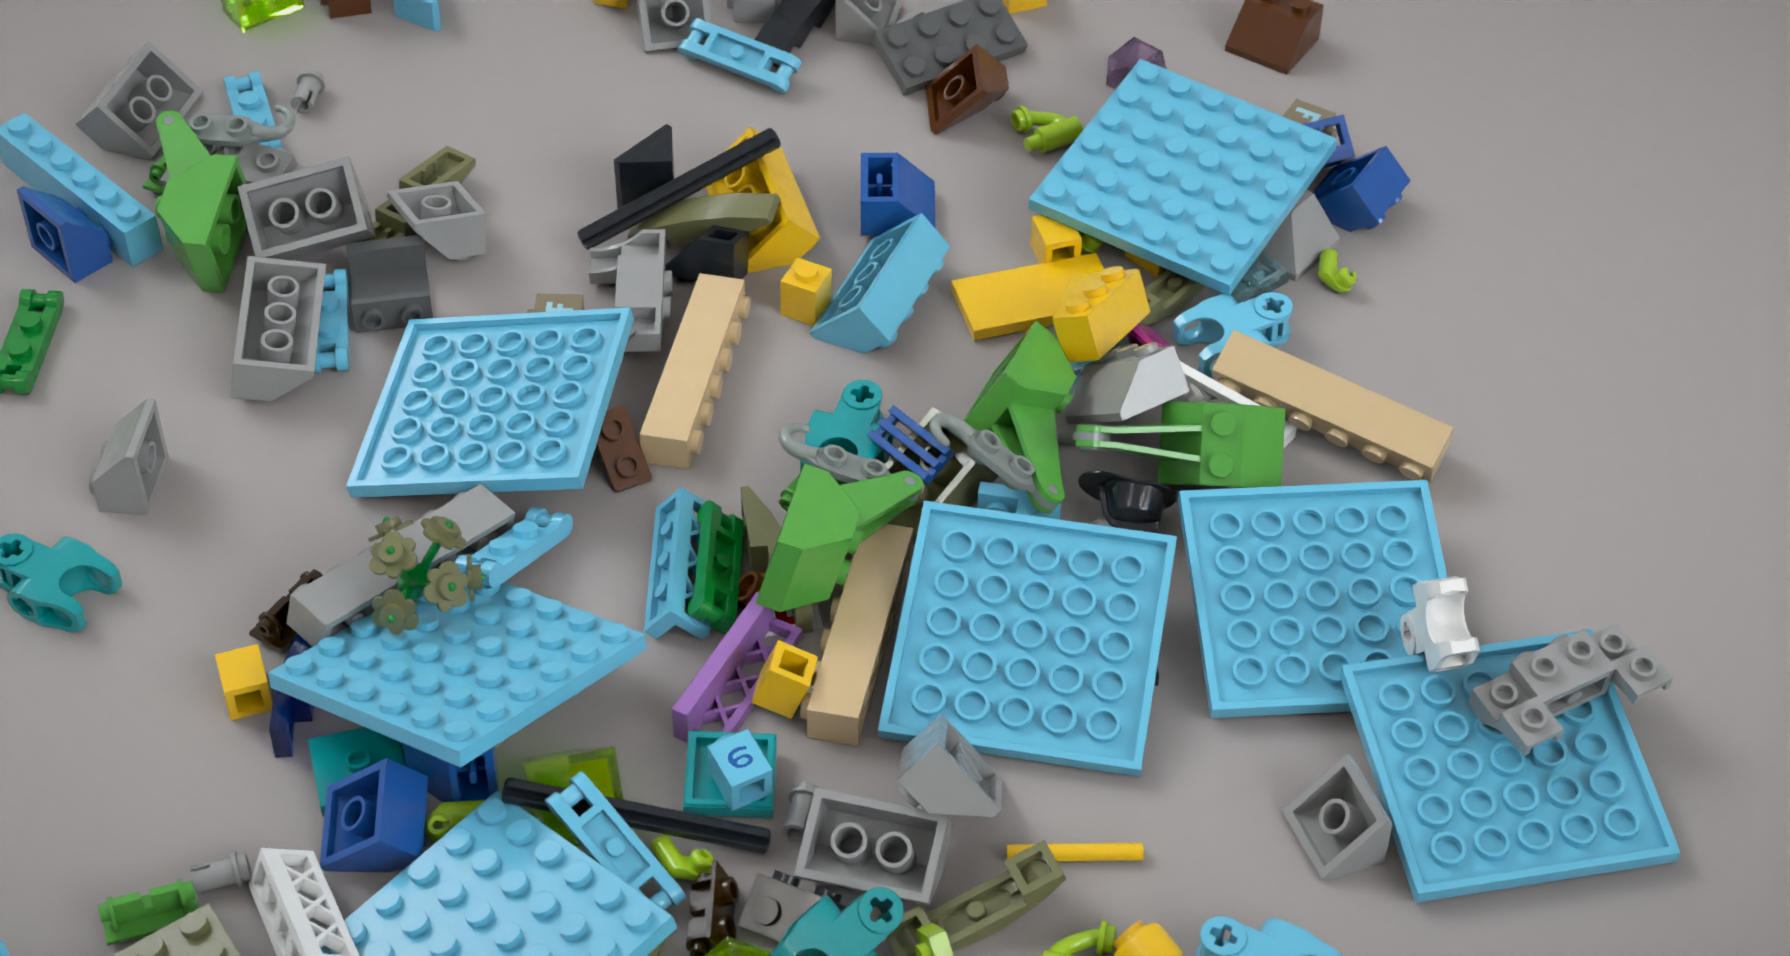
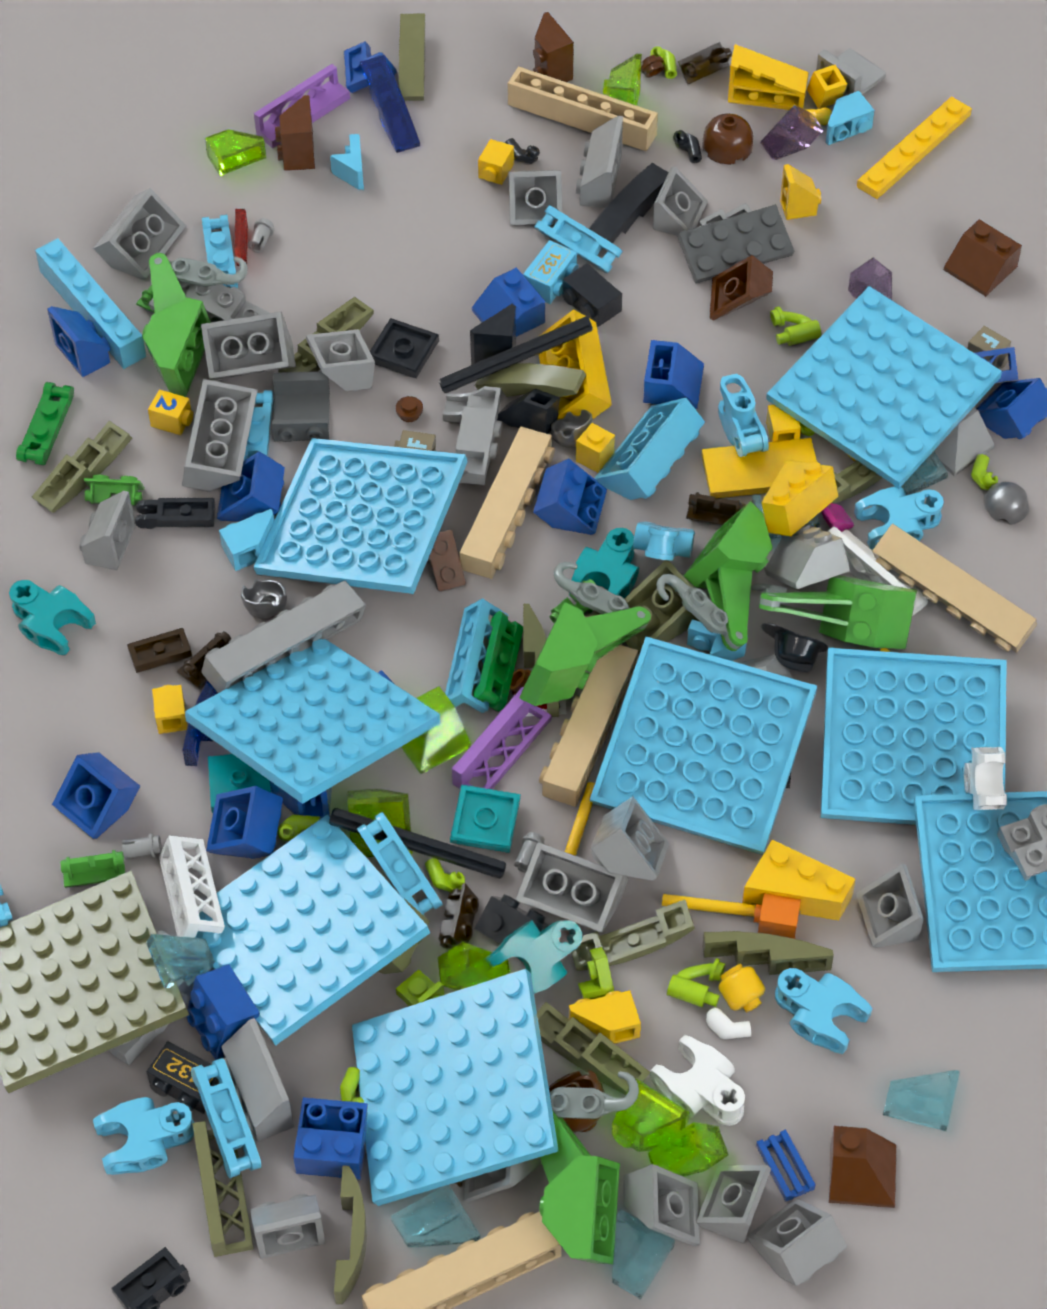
camera: 10 degrees right, 10 degrees up
(79, 395) = (89, 460): none -> olive slope
(115, 405) = (102, 487): none -> bright green hinge
(142, 808) = (95, 793): none -> blue slope
(204, 308) = (170, 412): none -> yellow brick
(220, 607) = (159, 650): none -> dark brown plate
(225, 431) = (176, 512): none -> black hinge
(280, 86) = (241, 234): none -> clear red tile
(330, 452) = (246, 538): none -> medium azure slope
(337, 395) = (254, 492): none -> blue slope
(360, 520) = (264, 598): none -> flat silver hair
(438, 585) = (276, 644): olive plant -> none
(519, 545) = (362, 631): medium azure plate -> none
(523, 202) = (404, 348): none -> black plate
(541, 274) = (409, 408): none -> reddish brown plate
(647, 678) = (441, 741): none -> clear neon green slope
(689, 130) = (509, 289): none -> blue slope
(708, 96) = (550, 269): none -> medium azure brick
(739, 769) = (490, 819): medium azure brick -> none
(765, 275) = (570, 428): none -> flat silver hair
(766, 107) = (592, 295): none -> black brick
(782, 356) = (570, 498): none -> blue slope
(784, 679) = (531, 755): yellow brick -> none
(869, 756) = (580, 821): none -> yellow bar
(888, 426) = (632, 570): blue tile -> none
(923, 386) = (663, 541): none -> medium azure piece
(969, 350) = (709, 510): none -> dark brown hinge
(999, 238) = (740, 418): none -> medium azure piece
(1174, 899) = (769, 949): none -> olive slope
(1179, 853) = (777, 915): none -> orange brick
(1201, 804) = (794, 875): none -> yellow wedge
(1374, 300) = (1007, 502): none -> flat silver hair

